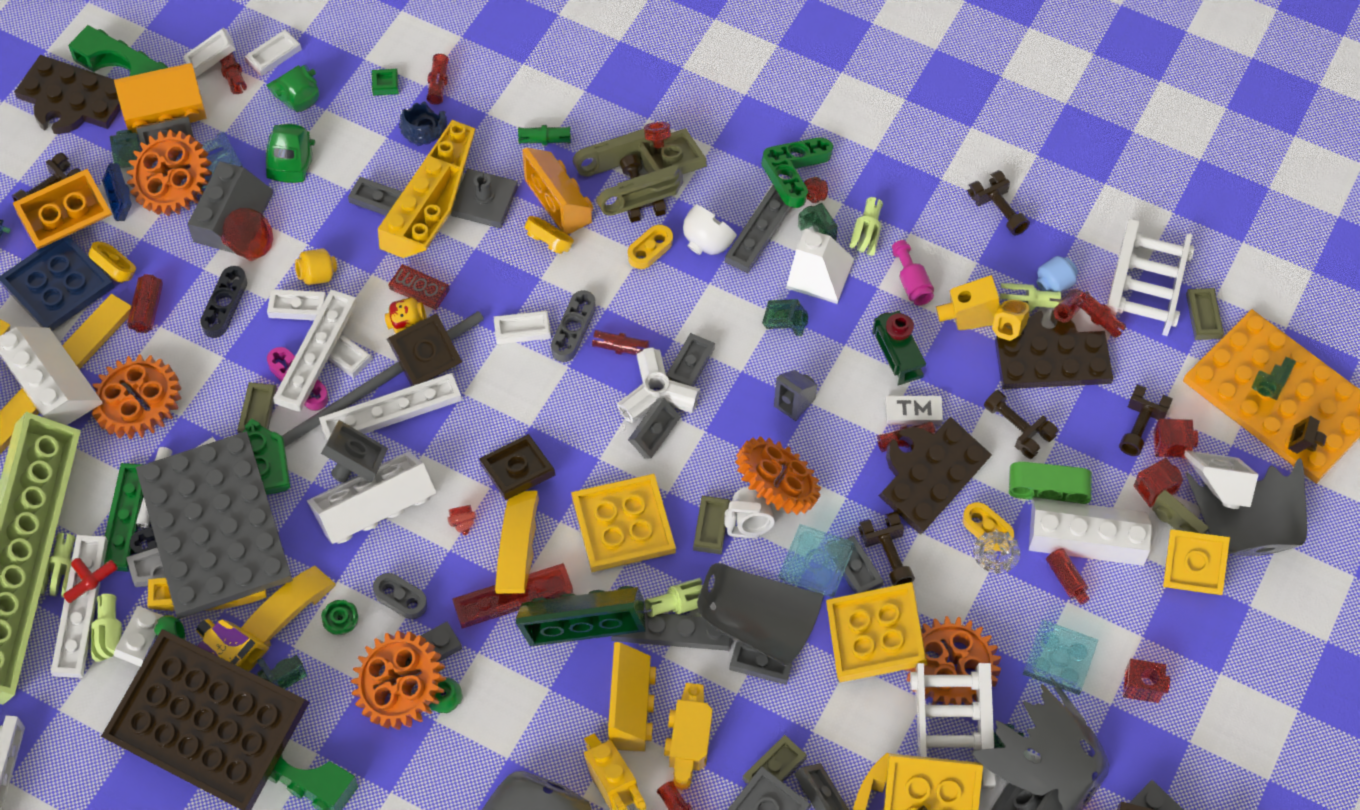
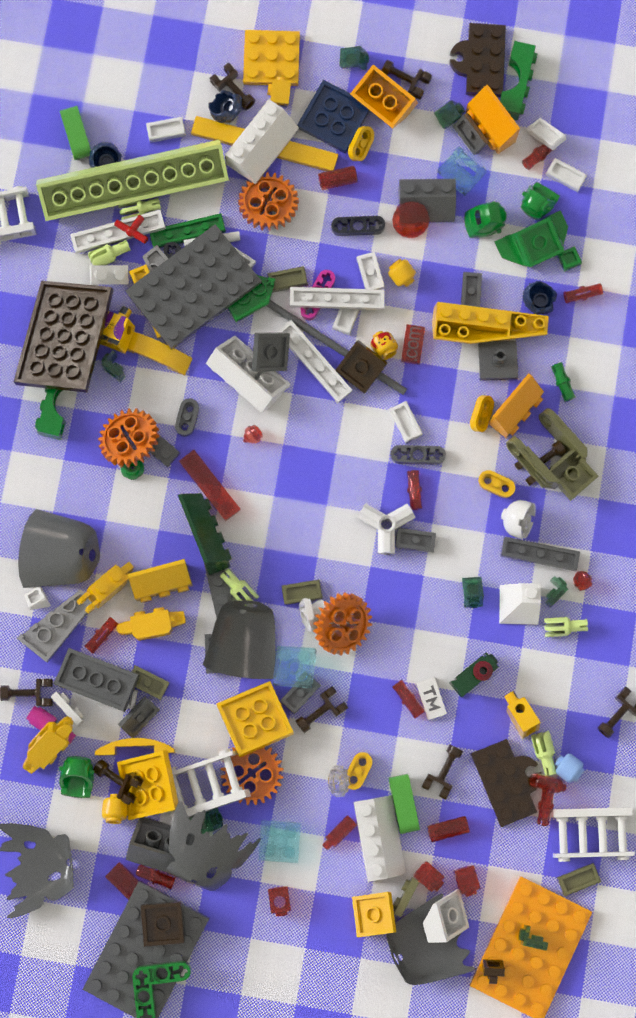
camera: 70 degrees right, 20 degrees up
(117, 192) = (414, 123): clear blue plate -> none
(169, 172) = (423, 160): orange gear -> none
(170, 624) = (118, 291): green plate -> none
(337, 609) = (159, 381): green plate -> none
(348, 111) = (535, 242): none -> green piece
(516, 543) = (244, 474): yellow slope -> none
(517, 467) = (299, 456): dark brown tile -> none
(623, 522) = (282, 536): yellow plate -> none
(654, 428) = (356, 533): dark grey plate -> none
(657, 133) = (582, 458): clear red tile -> none
(779, 161) = (593, 553): green beam -> none
(794, 393) = (413, 616): dark grey slope -> none
(913, 276) = (535, 669): dark pink piece -> none
(931, 471) = (385, 723): dark brown plate -> none
(1010, 319) = (519, 745): yellow rock -> none
(1099, 440) = (448, 829): none -> clear red axle
(1132, 442) = (454, 852): dark brown bar -> none

